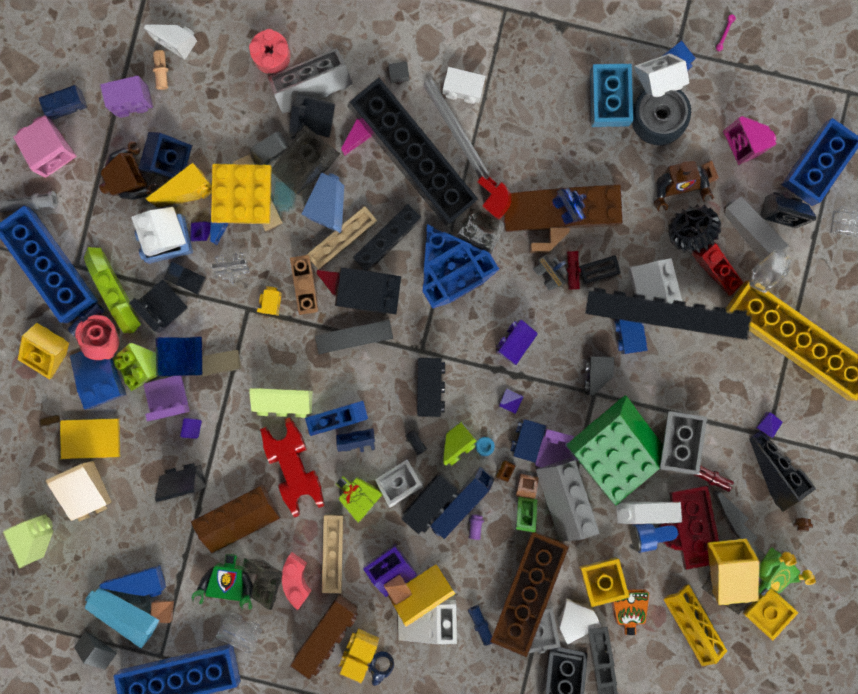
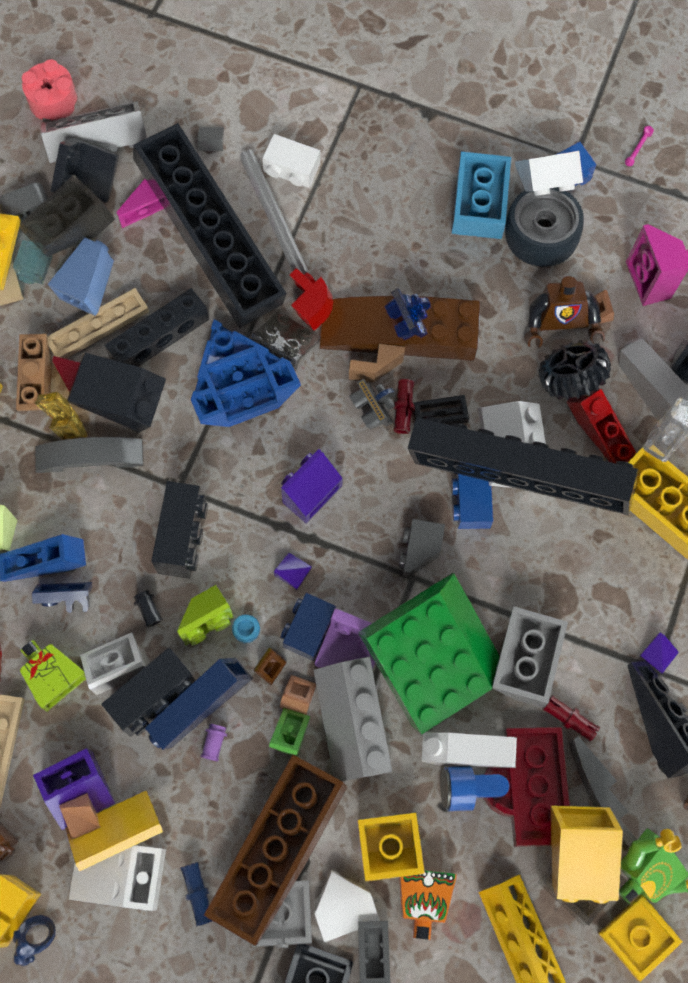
camera: 10 degrees right, 15 degrees down
(333, 315) = (64, 418): none -> clear yellow slope

